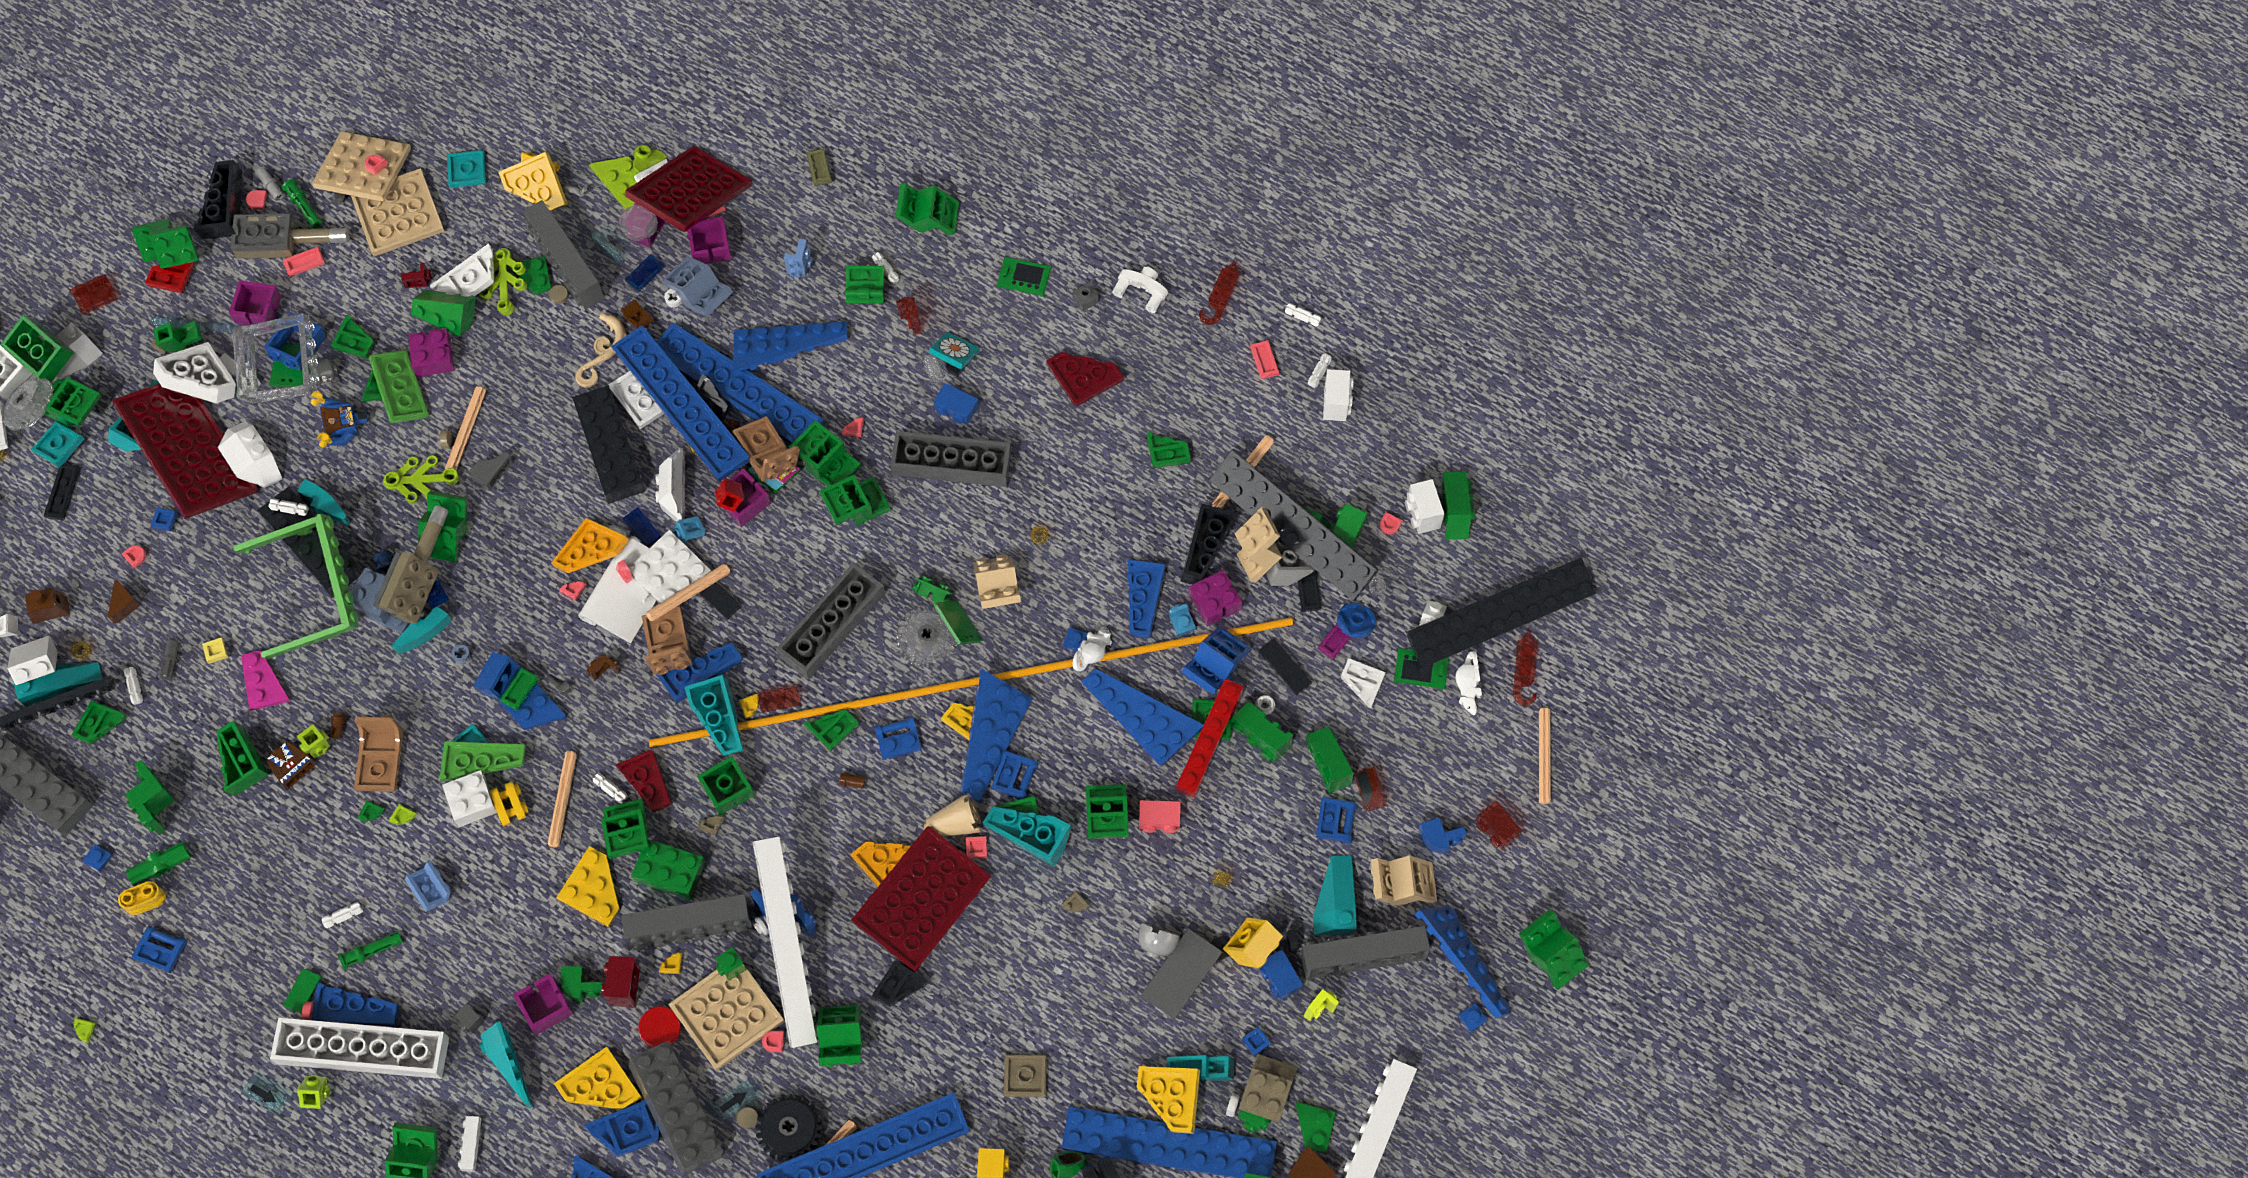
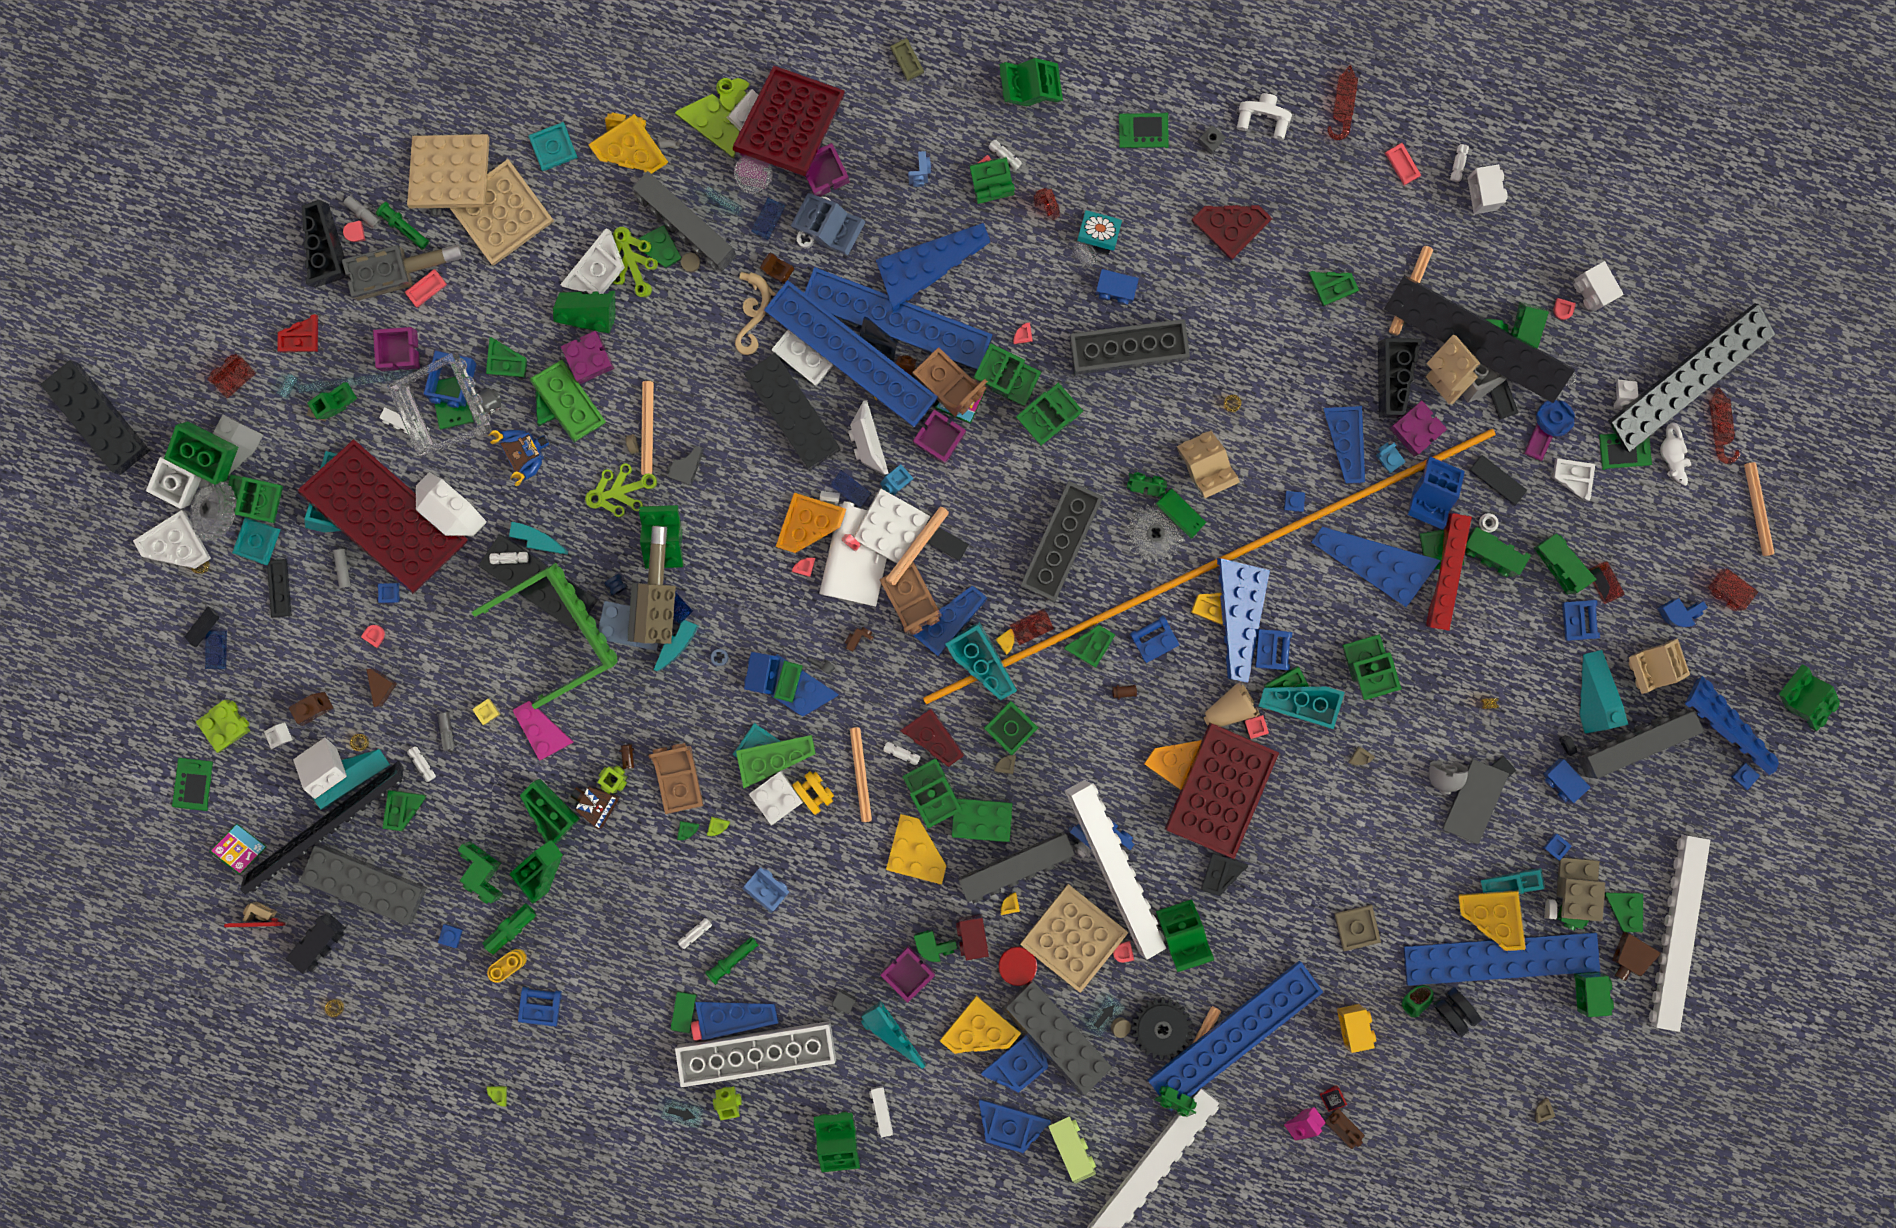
camera: 10 degrees left, 20 degrees up
(128, 487) = (341, 568): none -> light grey pin
(142, 315) = (287, 385): none -> clear light blue pin
(164, 243) = (289, 309): green bracket -> none
(195, 373) = (366, 439): white brick -> none
(206, 808) = (538, 871): none -> green wedge
(375, 163) = (463, 168): coral tile -> none
(416, 279) = (543, 282): dark red bracket -> none
(729, 494) = (931, 442): red brick -> none
(729, 964) = (1067, 898): green brick -> none
(1092, 649) = (1316, 508): white animal -> none
(1159, 816) = (1419, 656): coral brick -> none
(1253, 943) = (1537, 760): yellow brick -> none
(1303, 314) = (1429, 106): white axle -> none
(1323, 1000) = (1609, 802): neon yellow bracket -> none
(1457, 505) = (1628, 274): green wedge -> none

